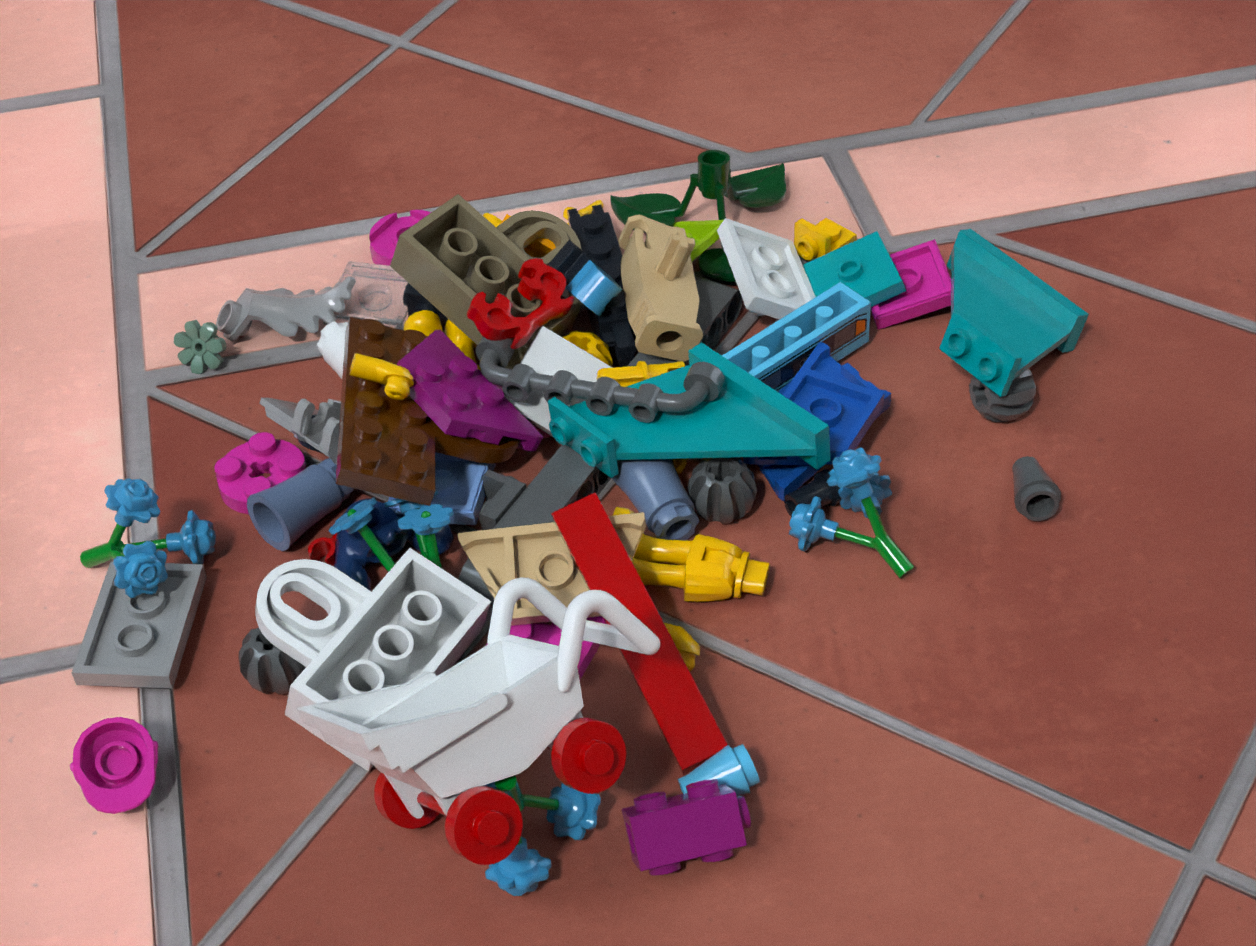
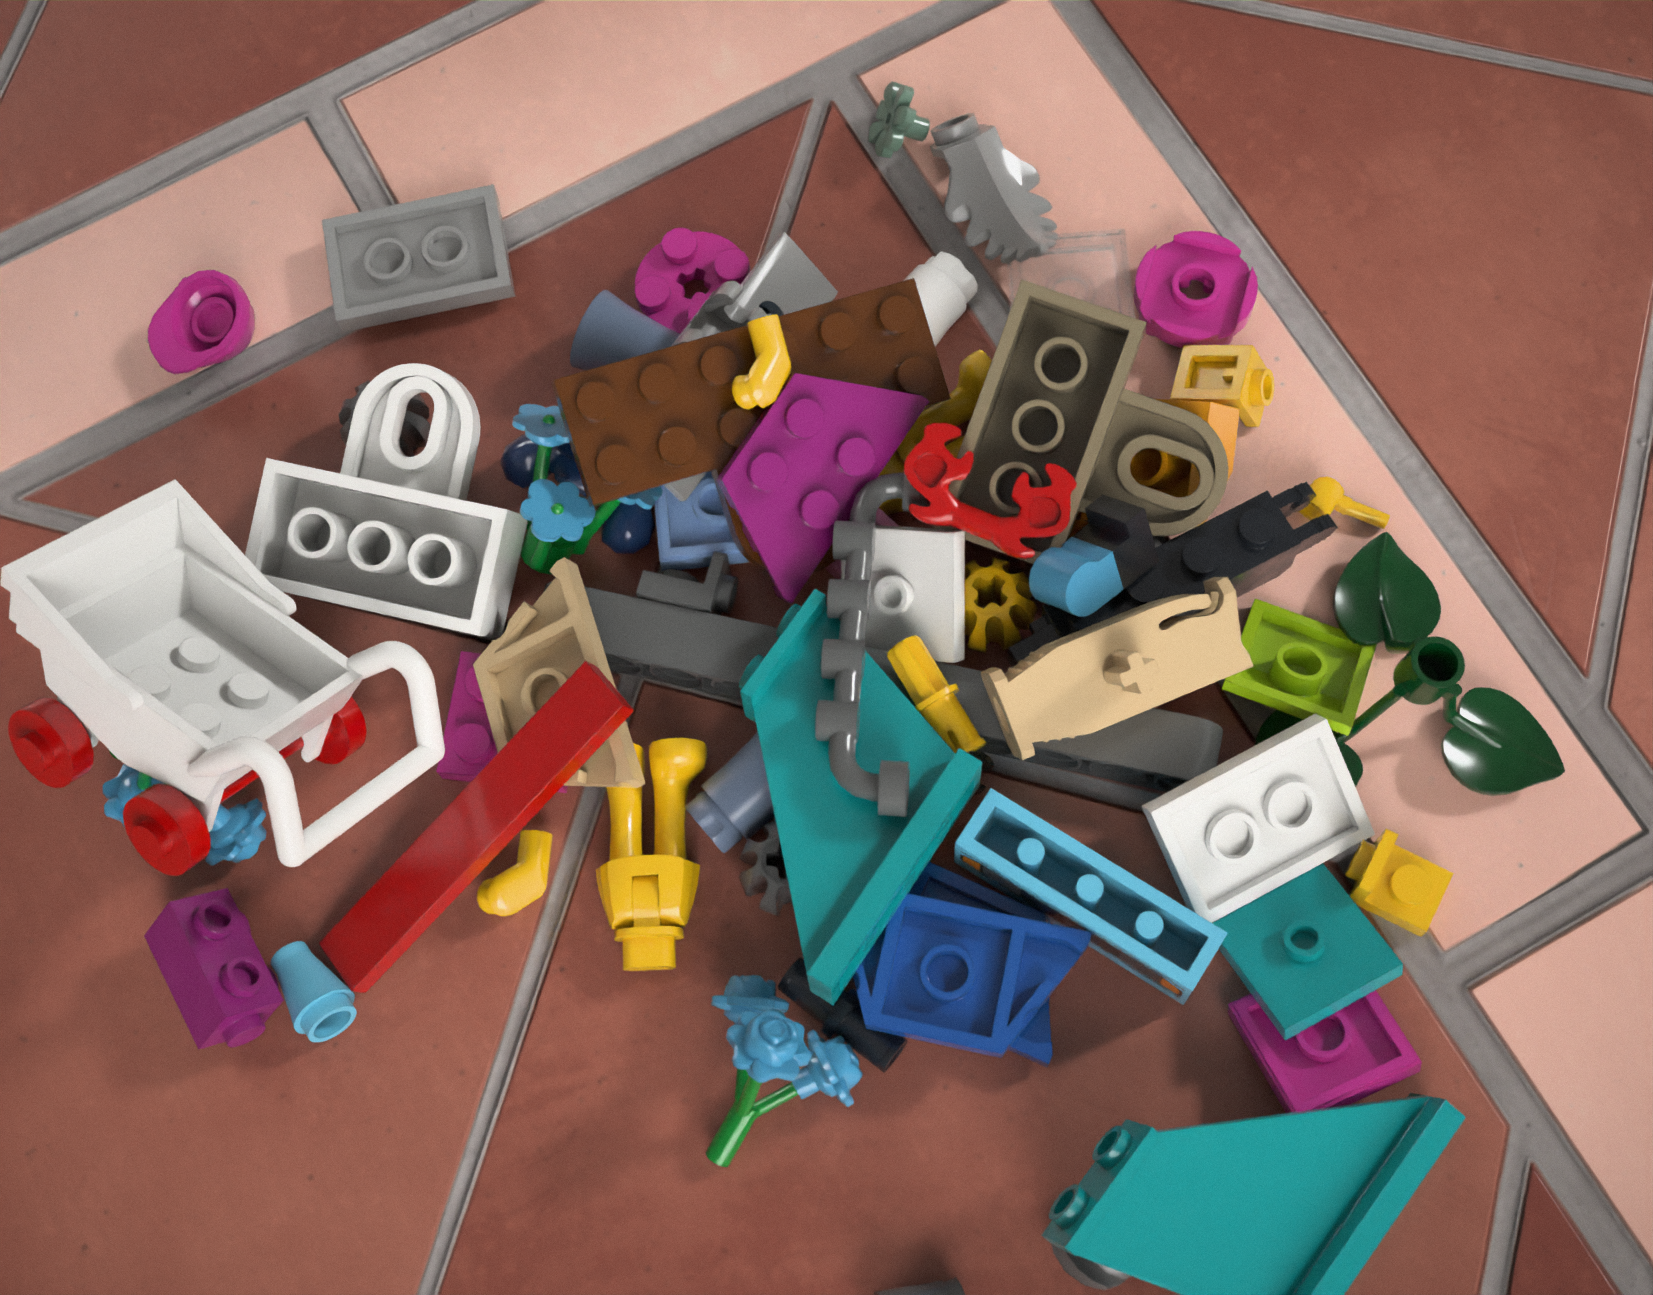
camera: 80 degrees right, 25 degrees up
(140, 564) = (517, 168): dark azure plant -> none

